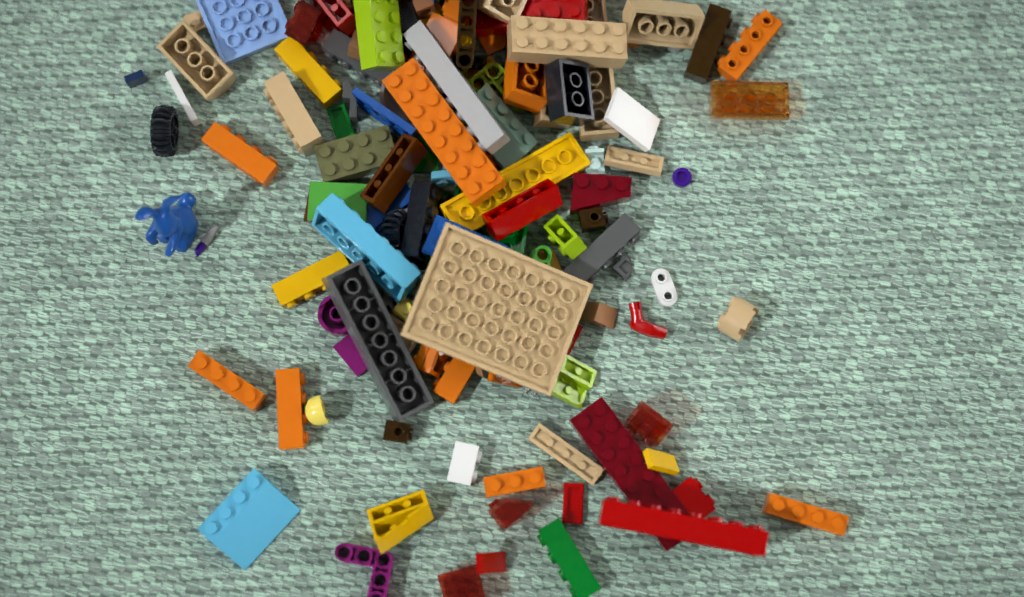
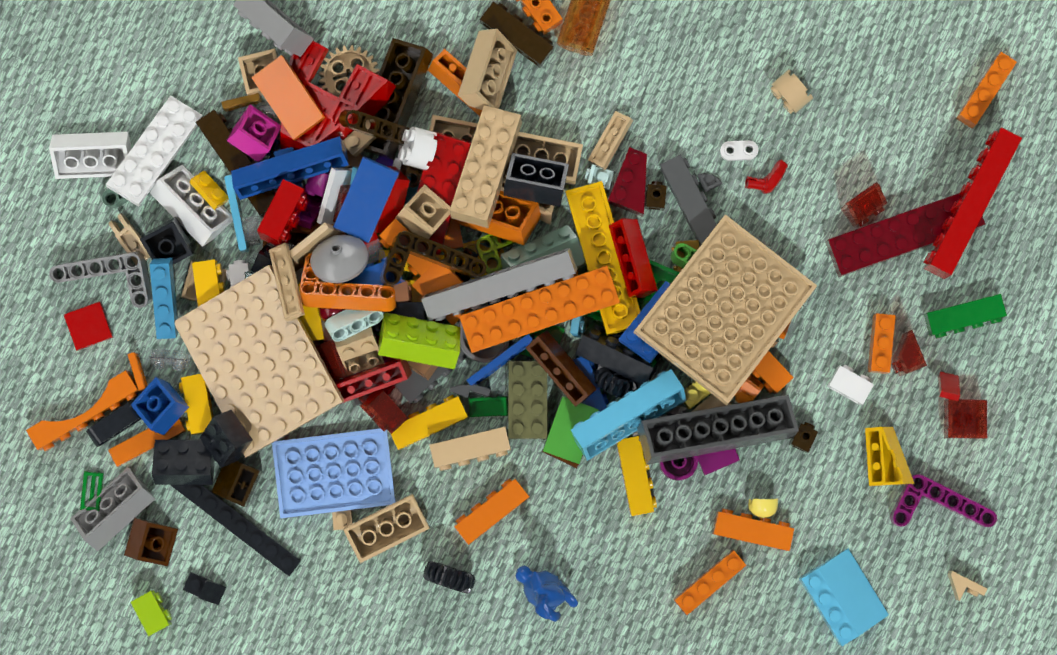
camera: 70 degrees left, 5 degrees up
(135, 79) = (384, 592): dark blue tile -> none
(182, 98) = (418, 552): white tile -> none
(206, 240) = (565, 567): light grey piece -> none
(565, 237) = (664, 228): lime brick -> none
(565, 454) = (868, 289): tan plate -> none
(573, 382) = (805, 259): lime slope -> none
(573, 503) = (914, 296): red tile -> none
(599, 314) = (749, 216): medium nougat slope -> none
(631, 119) = (573, 129): white tile -> none
(661, 461) = (902, 204): yellow tile -> none
(681, 177) = (638, 100): dark purple tile -> none
(693, 498) = (942, 186): red brick -> none

